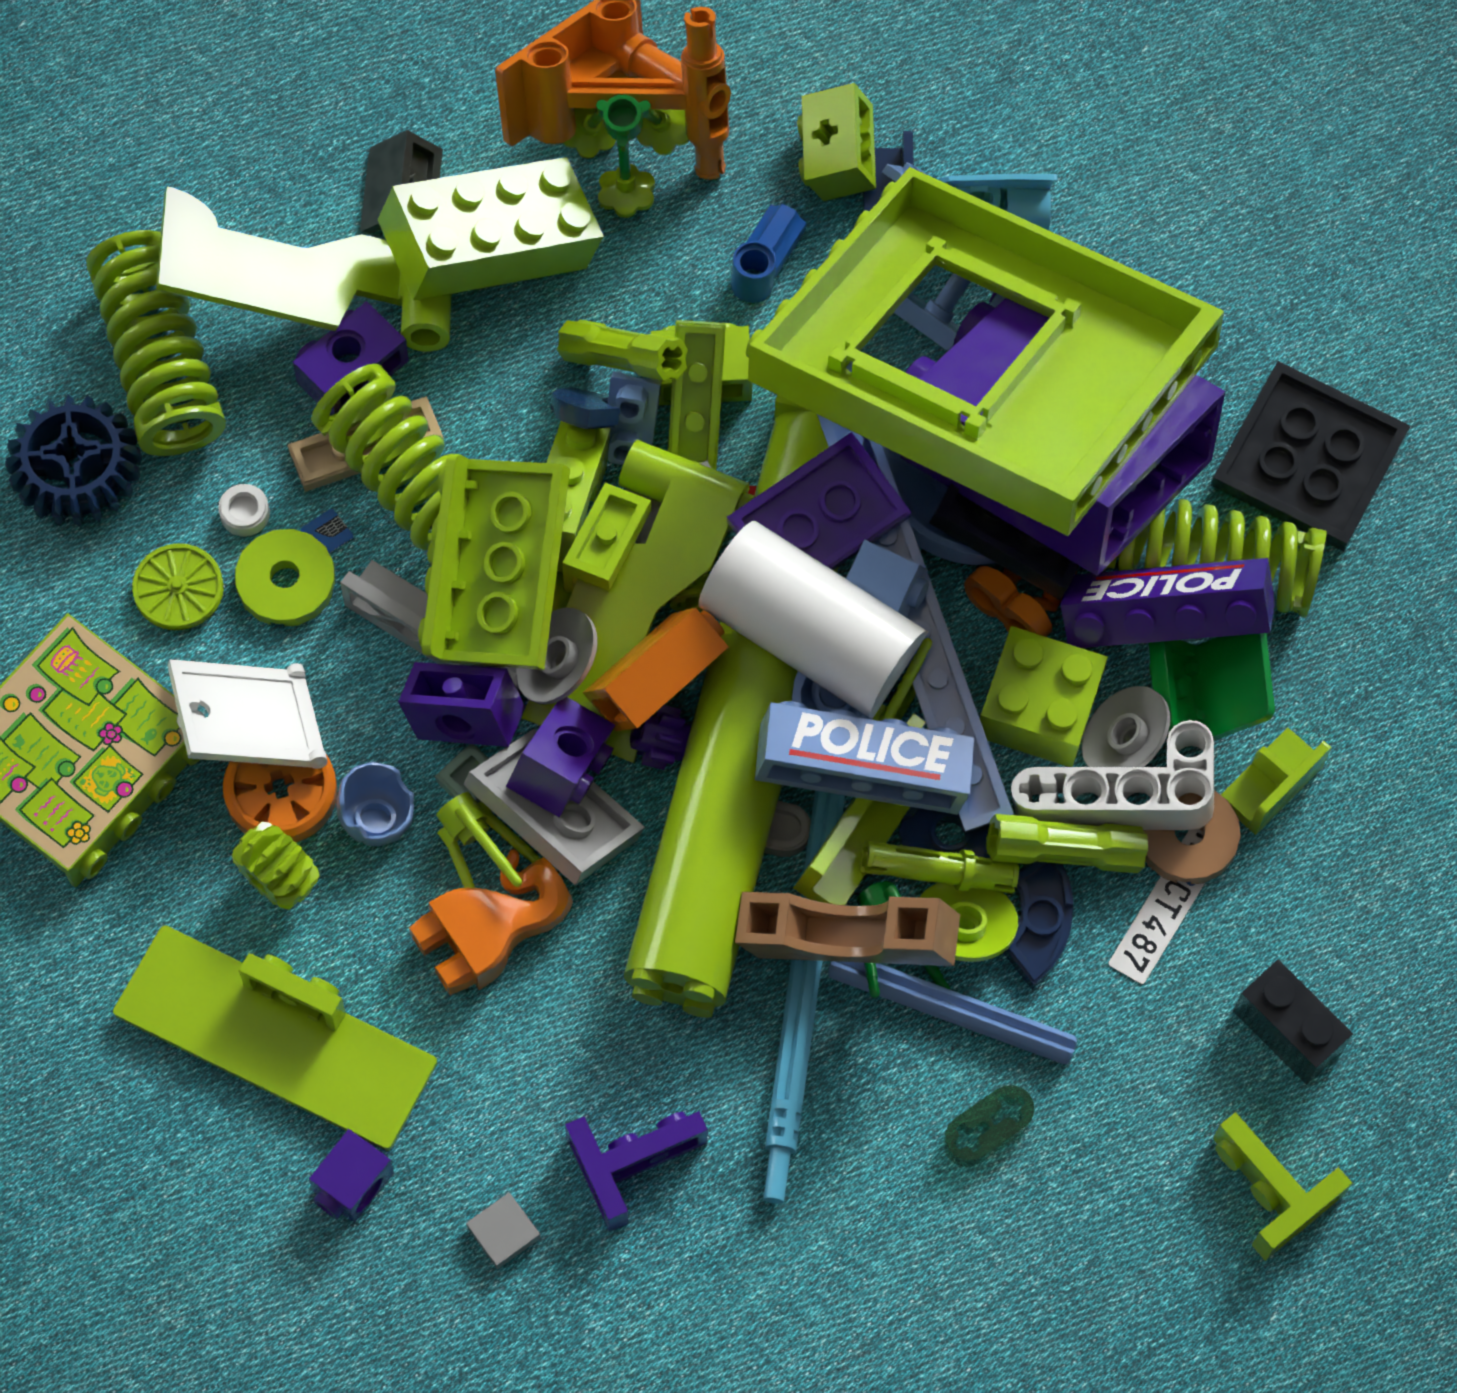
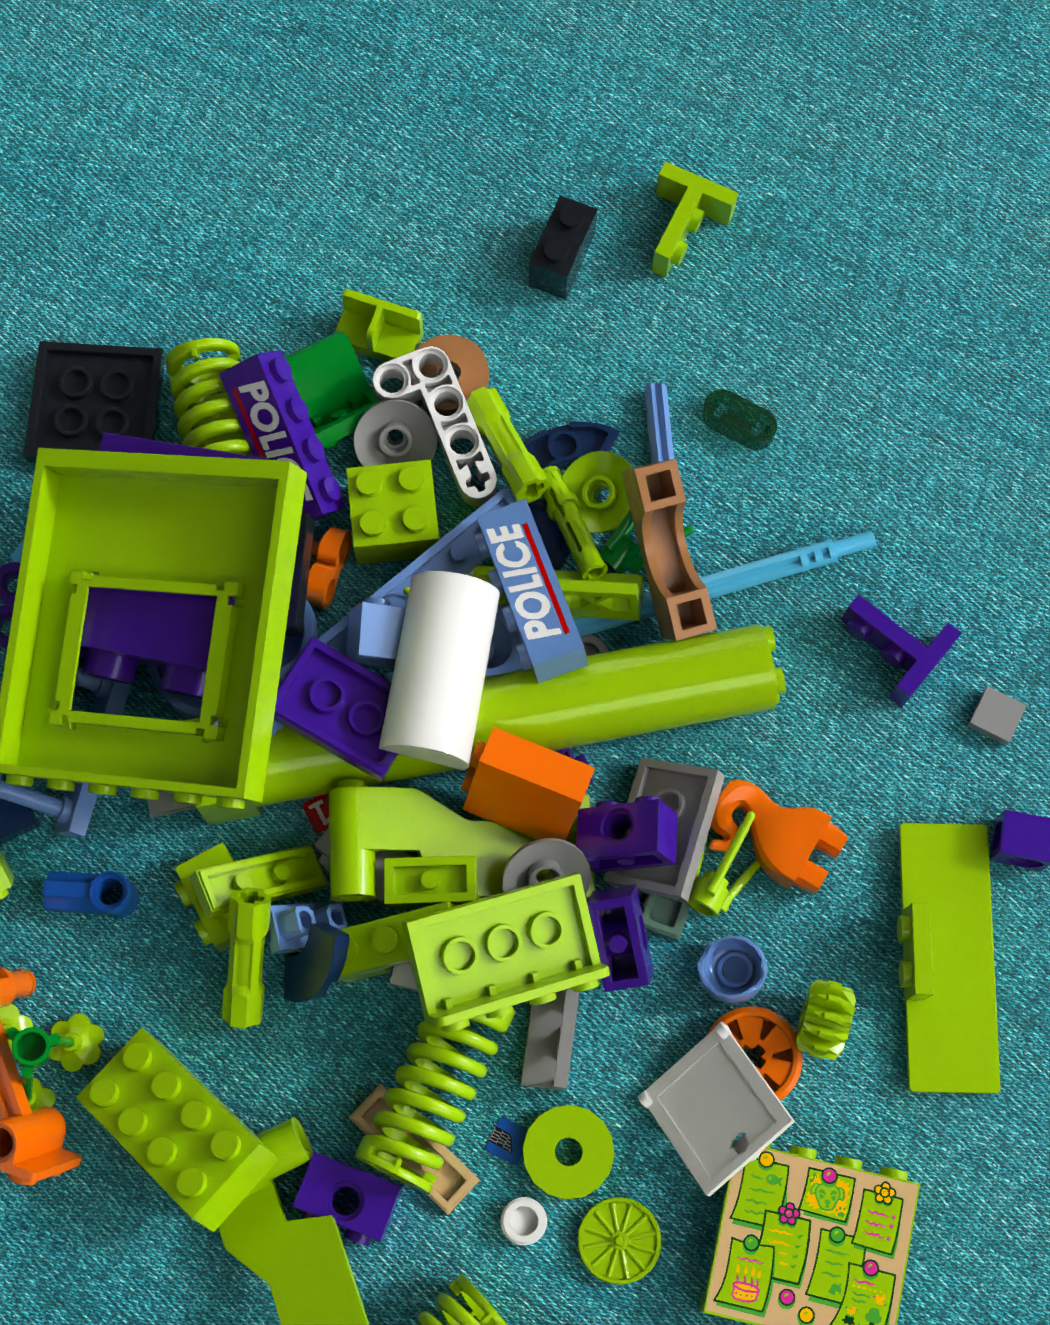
camera: 115 degrees left, 5 degrees up
(396, 162) = (153, 1246): pearl dark grey panel -> none
(1156, 923) = (530, 374): white sticker -> none

